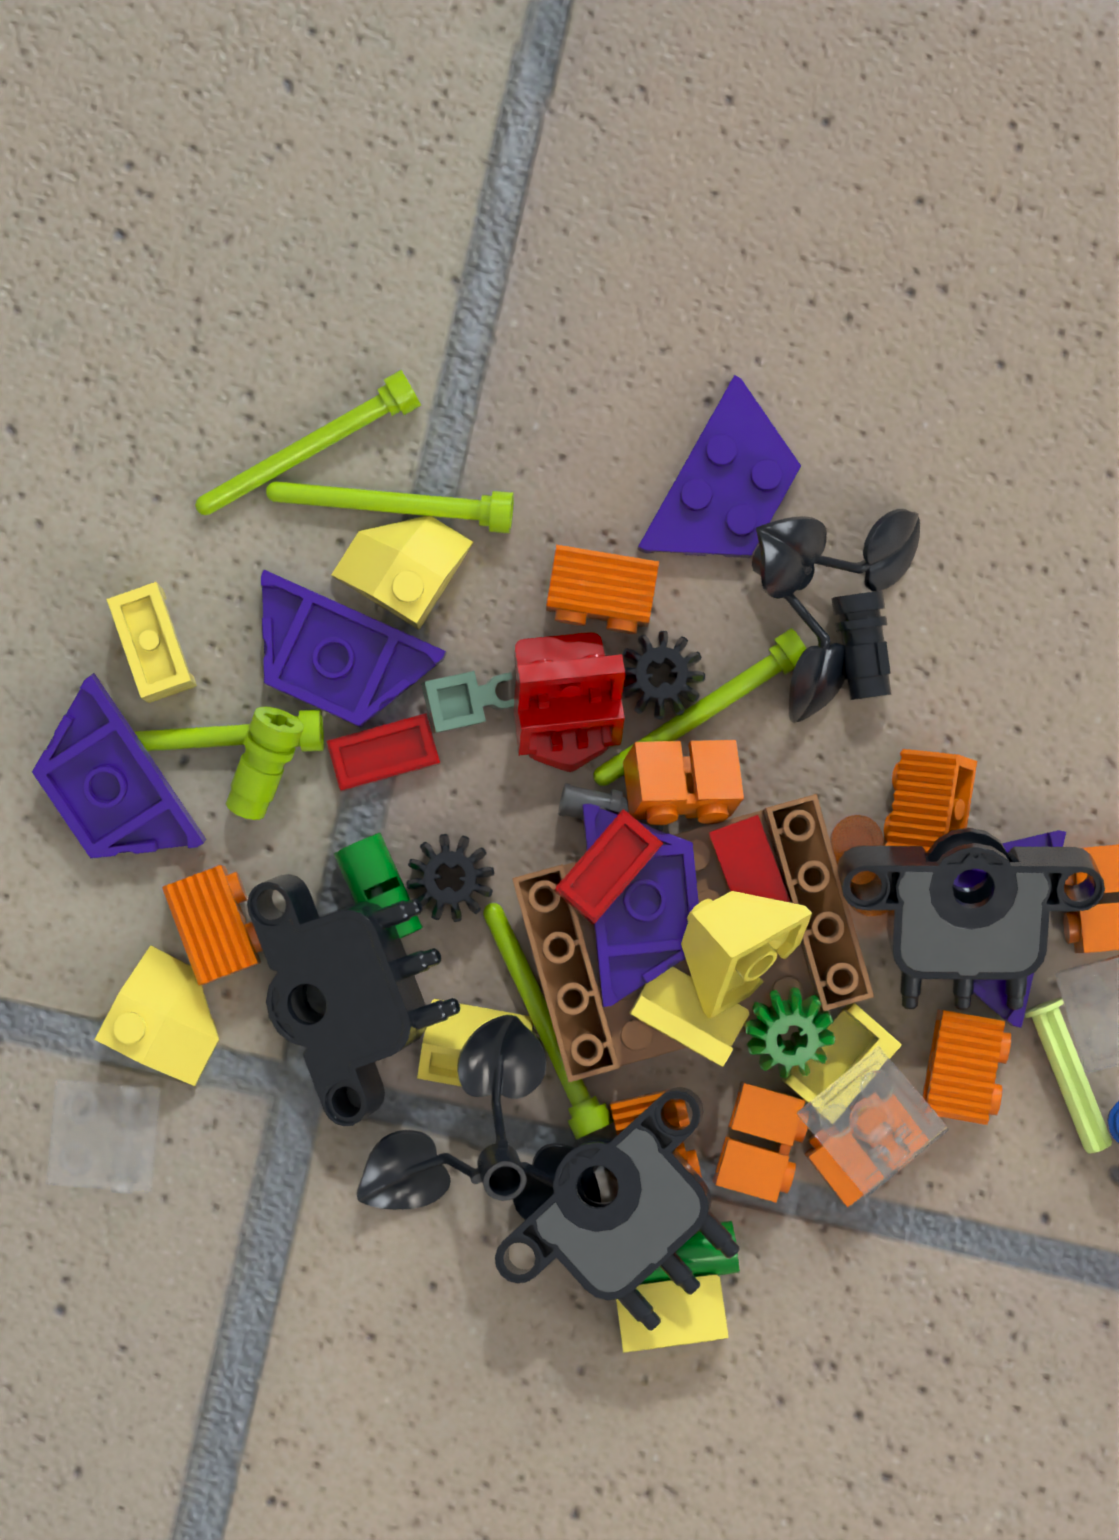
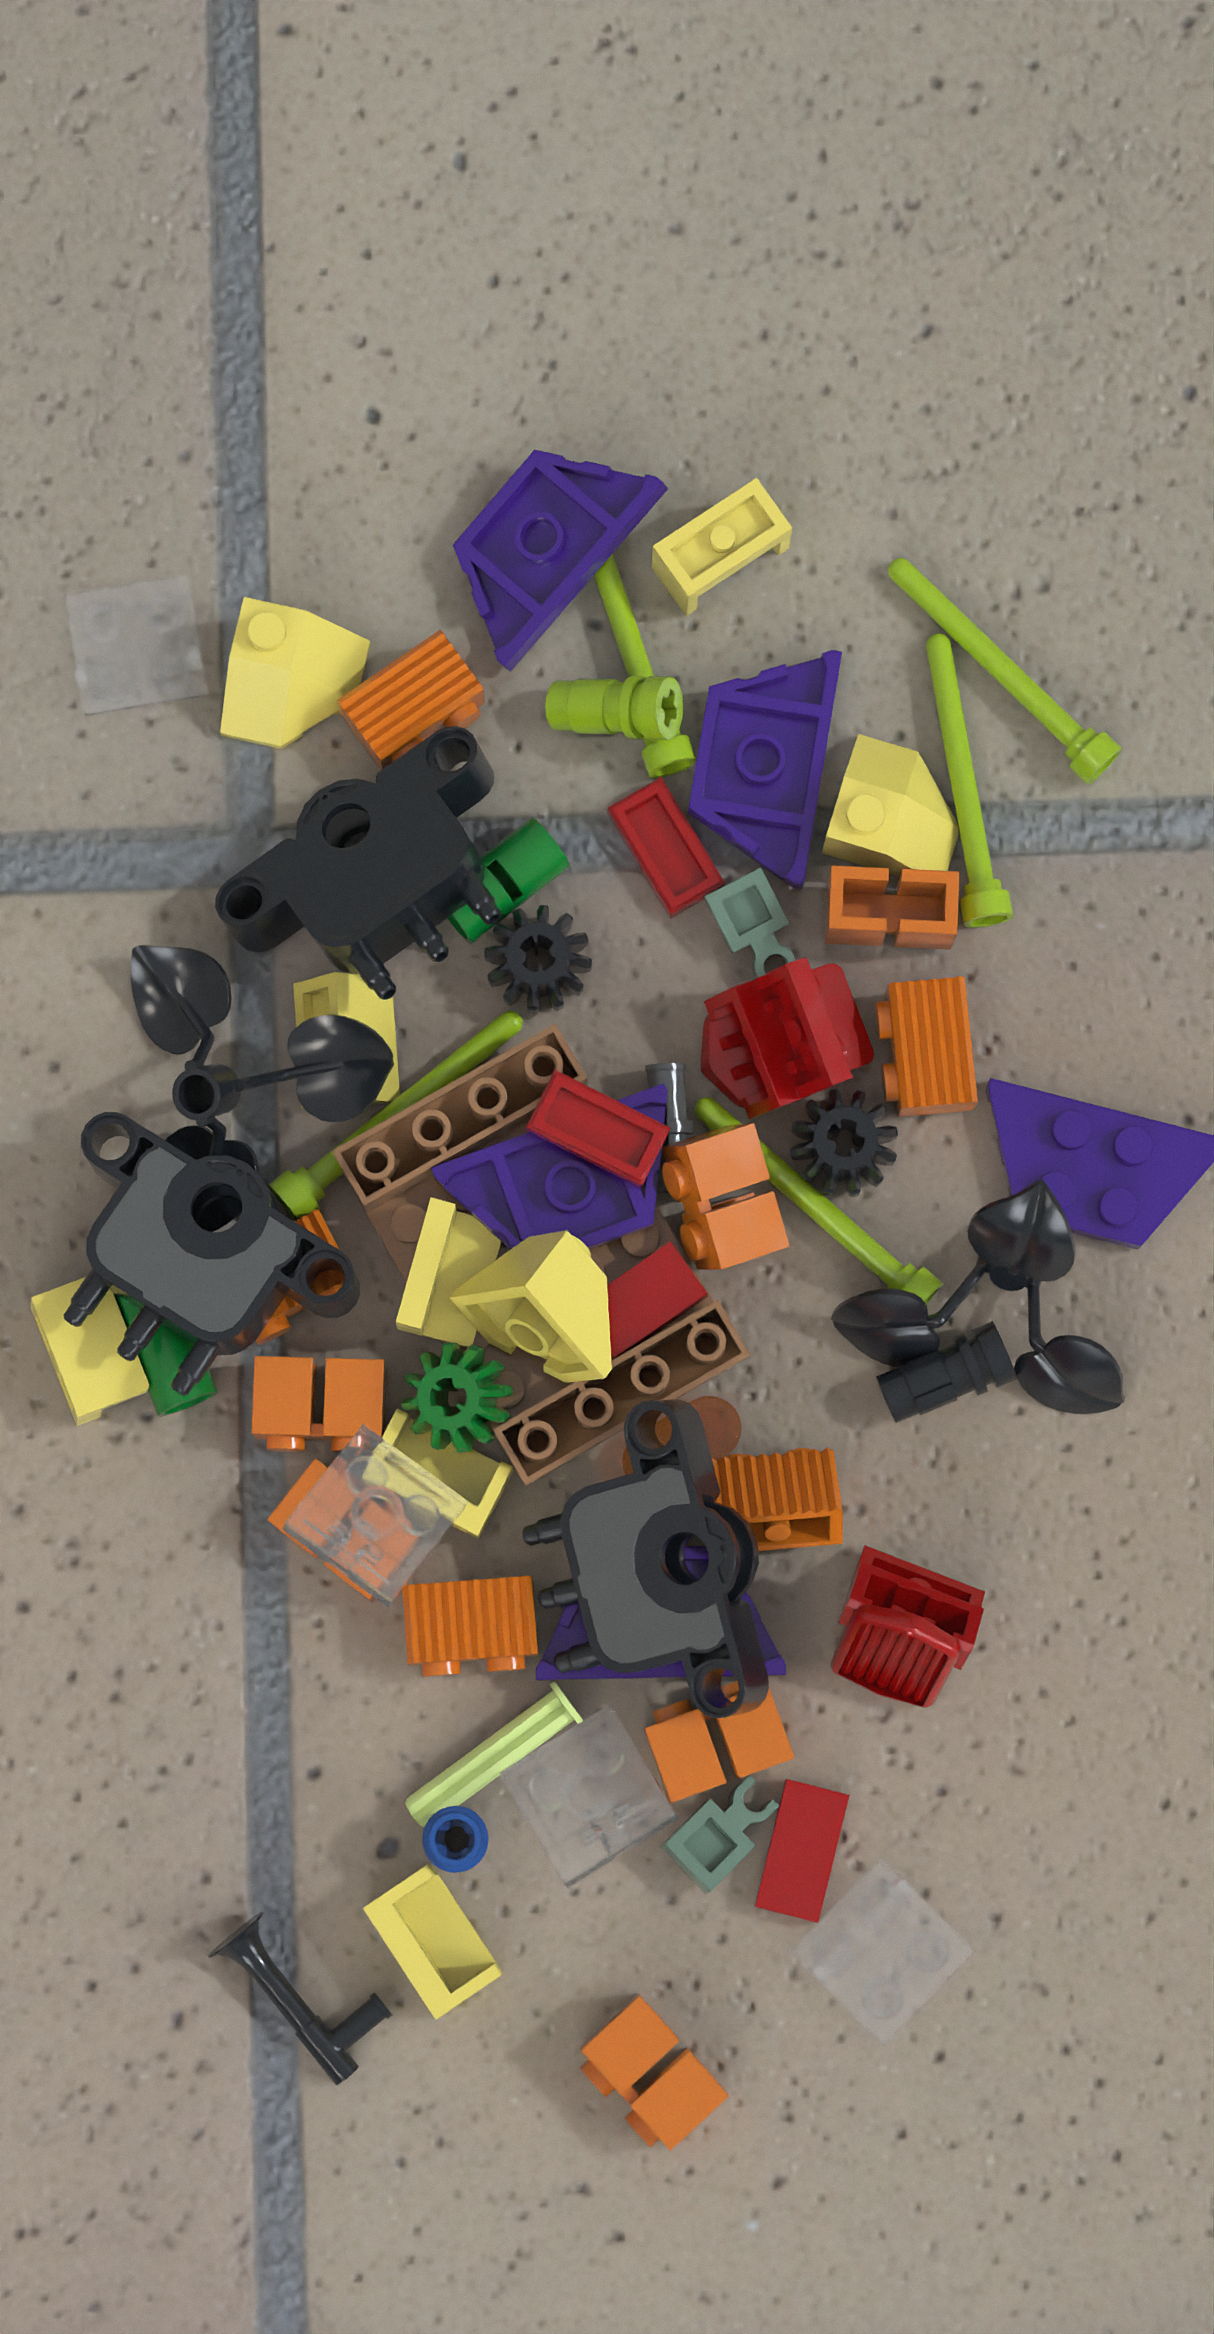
camera: 80 degrees right, 5 degrees down
(492, 567) = (918, 915): none -> orange piece
(1053, 728) = (905, 1628): none -> red piece

